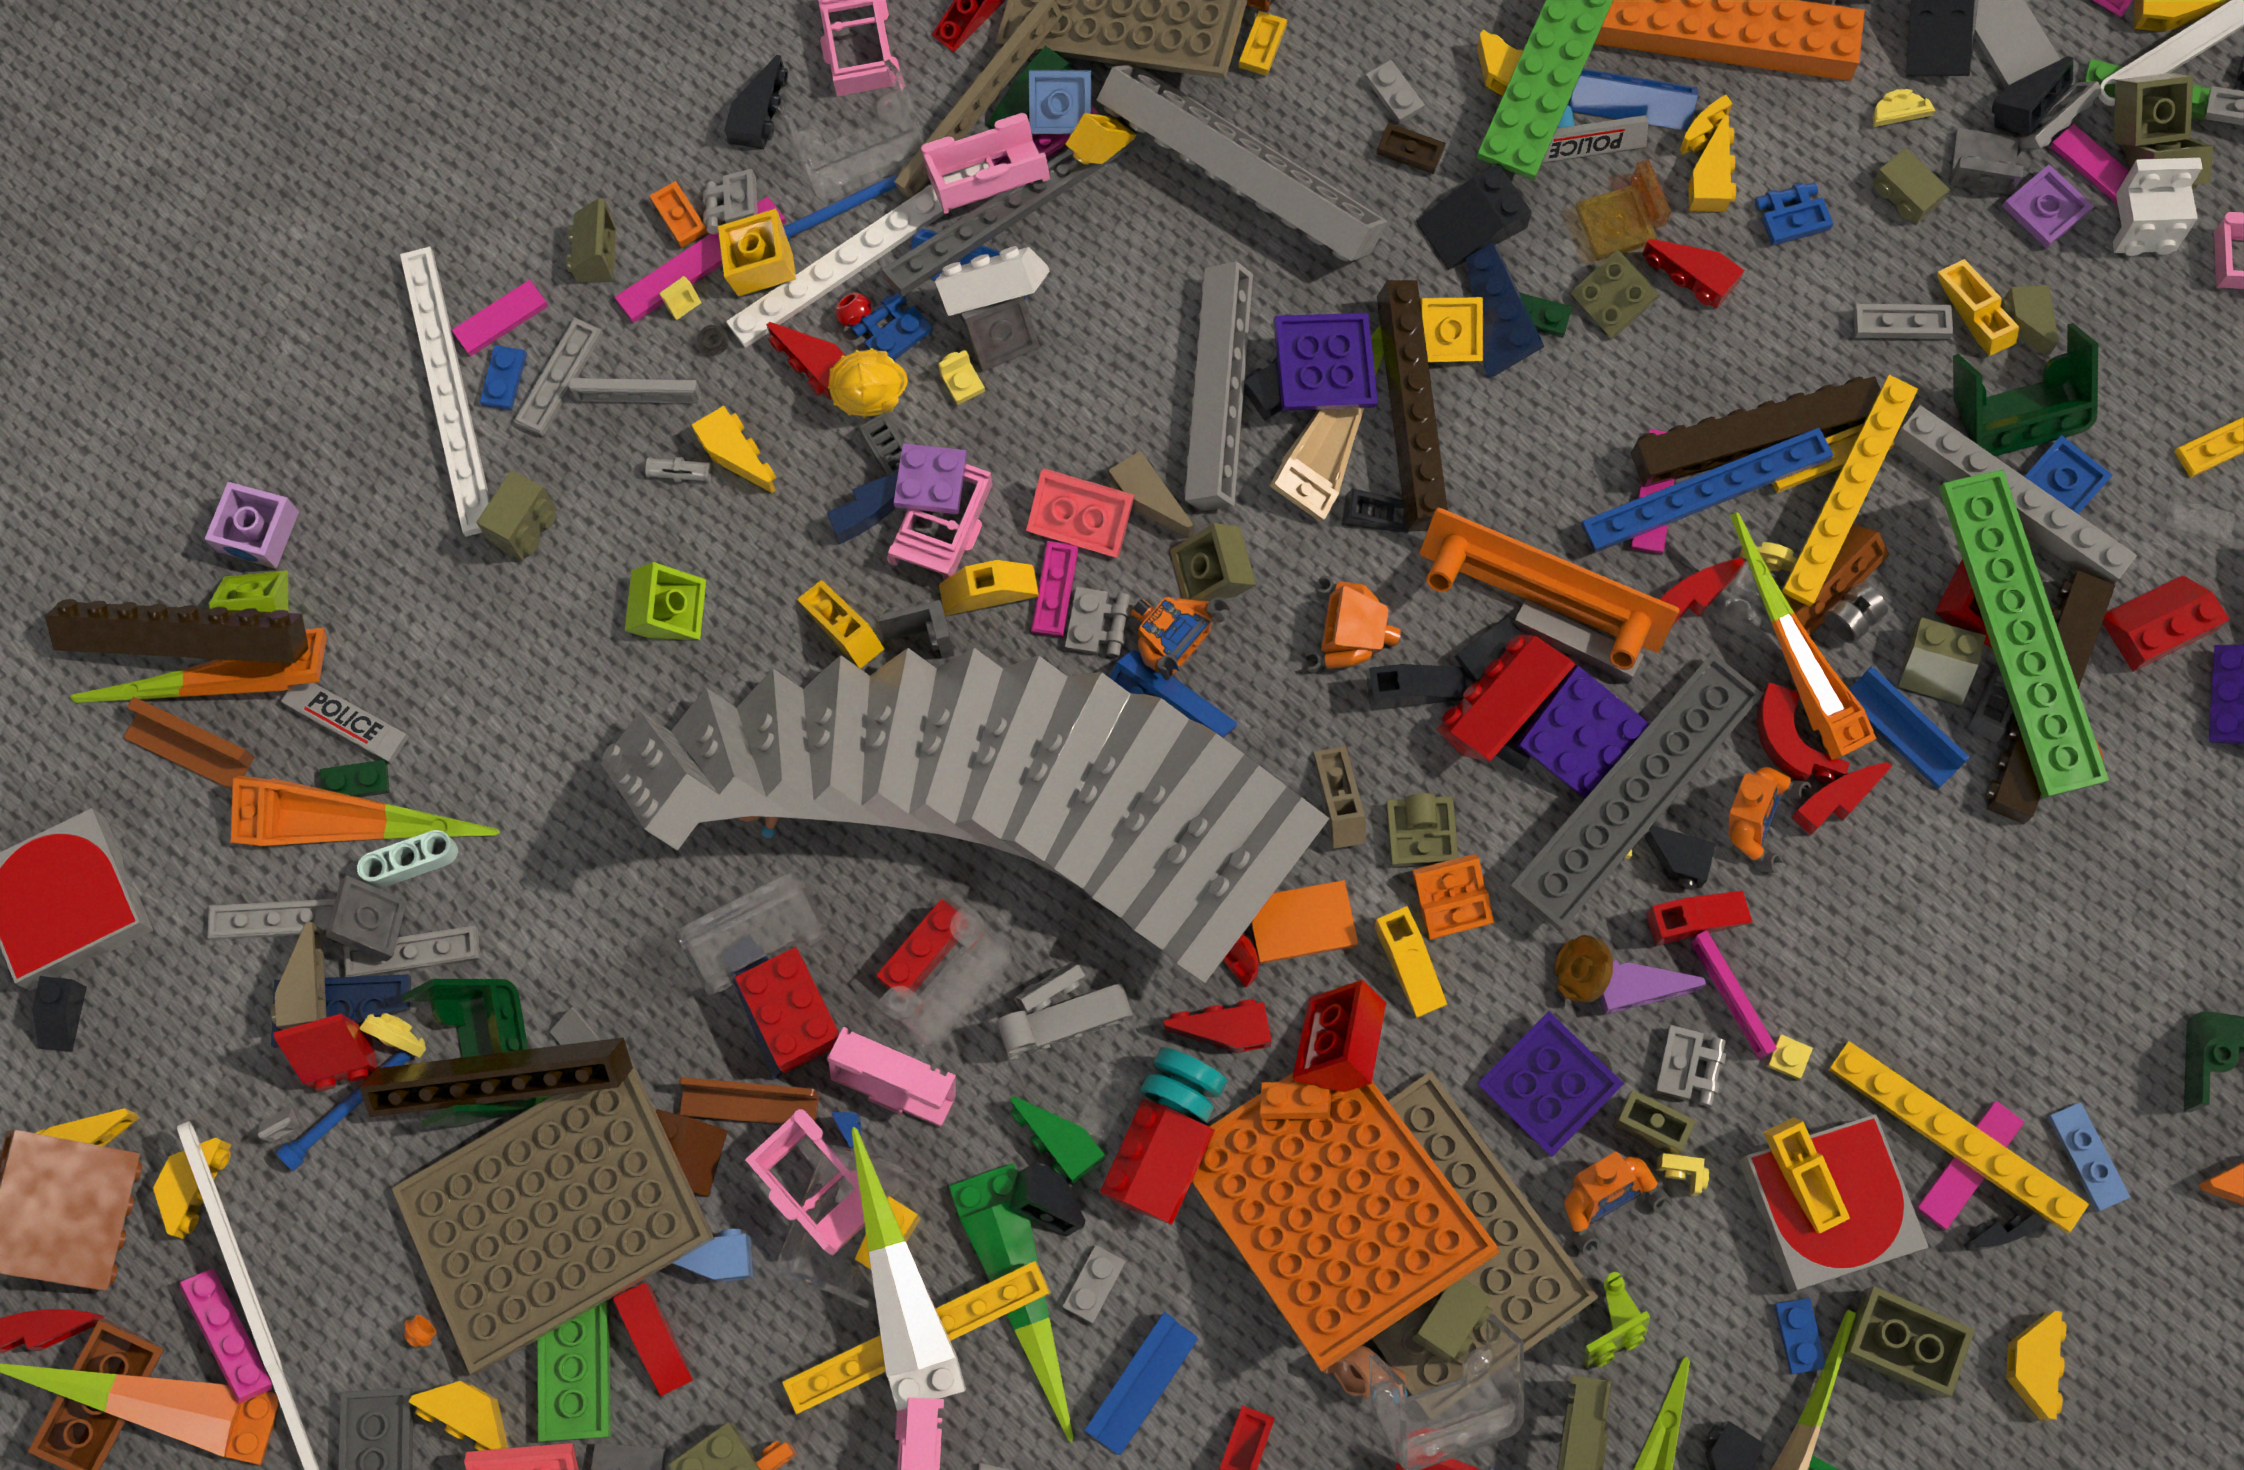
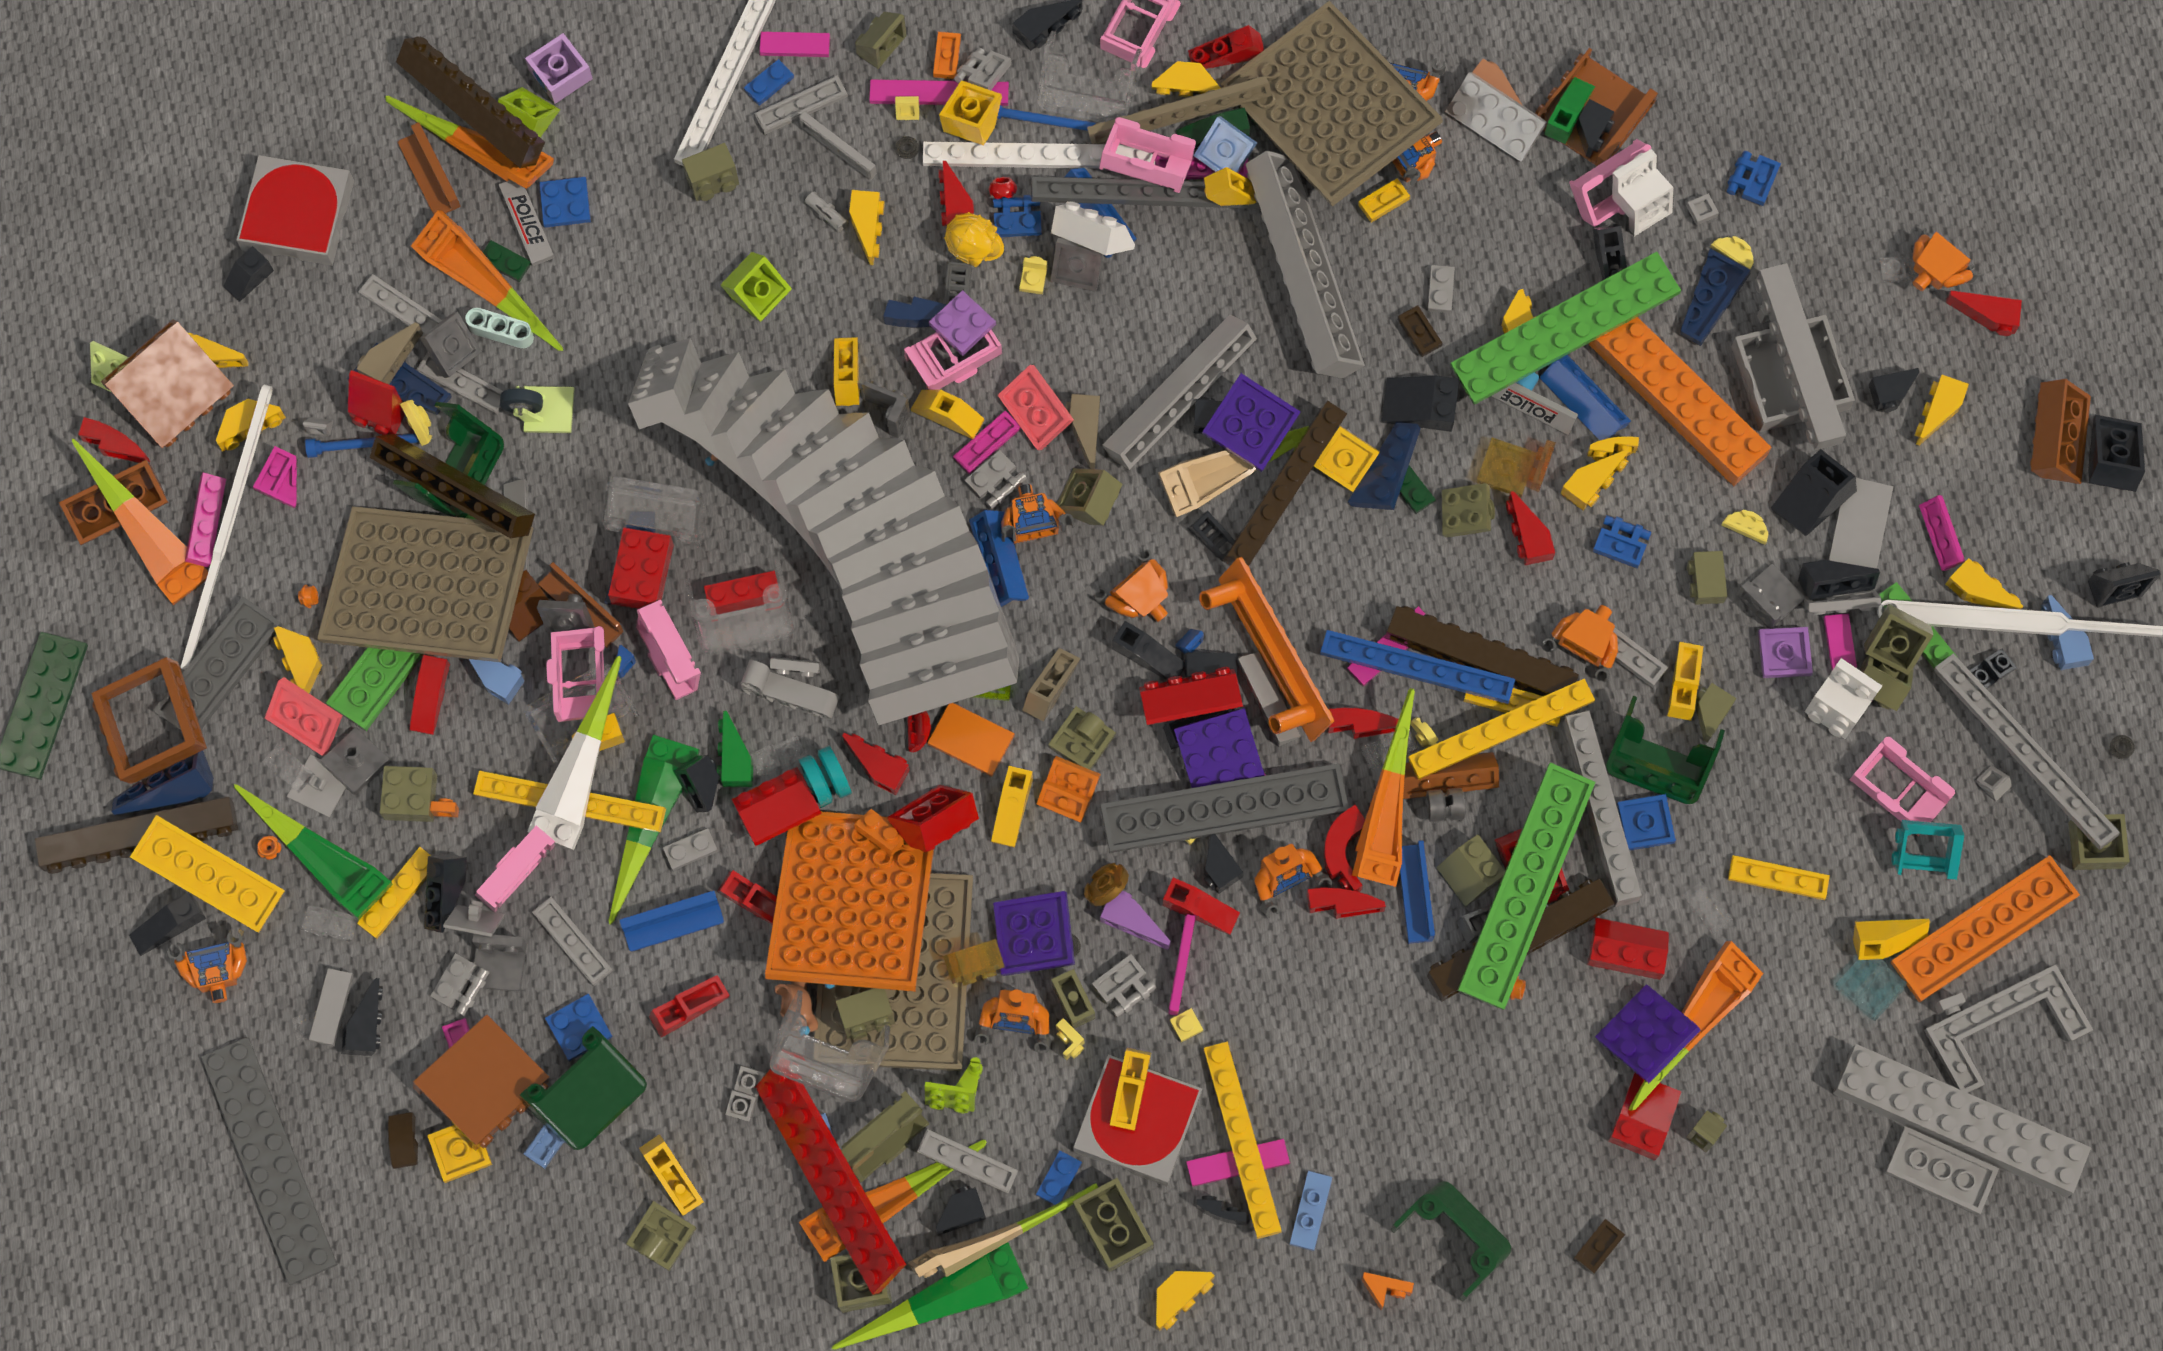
camera: 35 degrees right, 0 degrees up
(277, 1219) = (279, 477): none -> dark pink wing
(373, 666) = (565, 202): none -> blue plate
(527, 913) = (541, 407): none -> yellowish green plate
(745, 1128) = (565, 615): none -> flat silver tile
(958, 62) = (1185, 79): none -> yellow slope
(1209, 1286) = (749, 896): none -> red slope
(1446, 640) = (1190, 641): none -> blue slope
(1516, 1166) = (974, 961): none -> clear yellow brick
(1690, 1397) = (967, 1161): none -> light grey tile
(1852, 331) = (1589, 637): none -> orange torso

